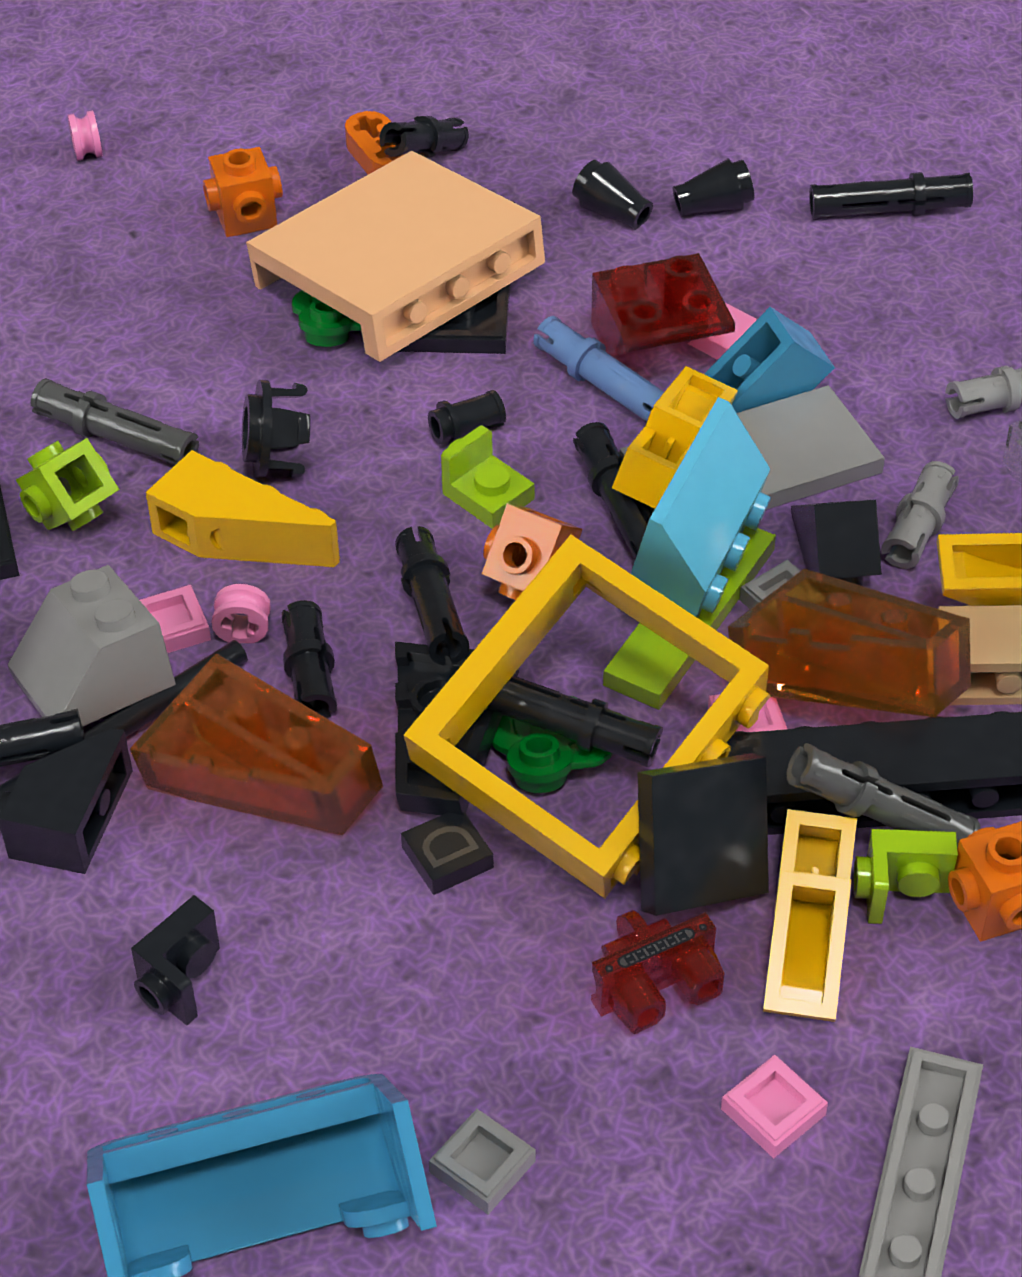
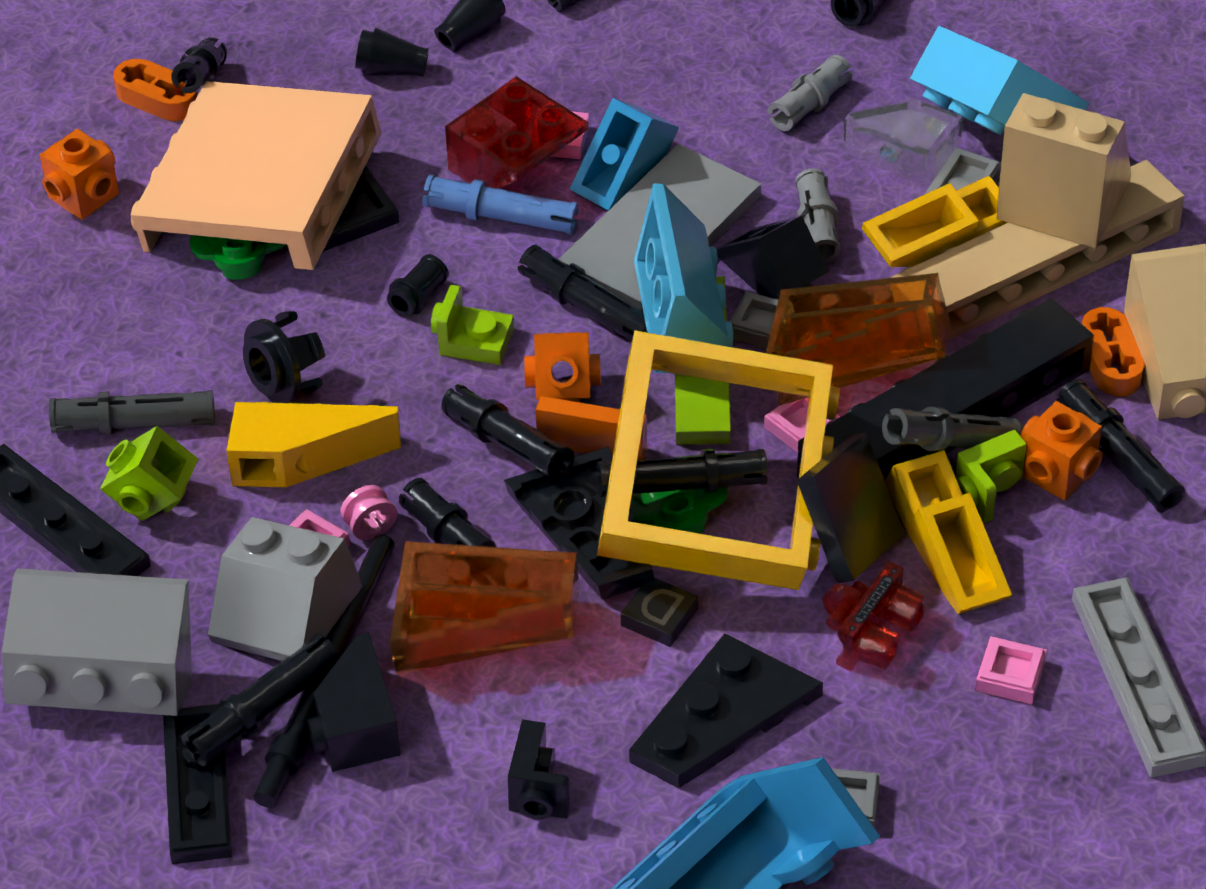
camera: 30 degrees left, 0 degrees up
(430, 984) = (719, 707): none -> black wing
(487, 603) = (582, 425): none -> orange tile
(668, 435) = (606, 233): yellow slope -> none

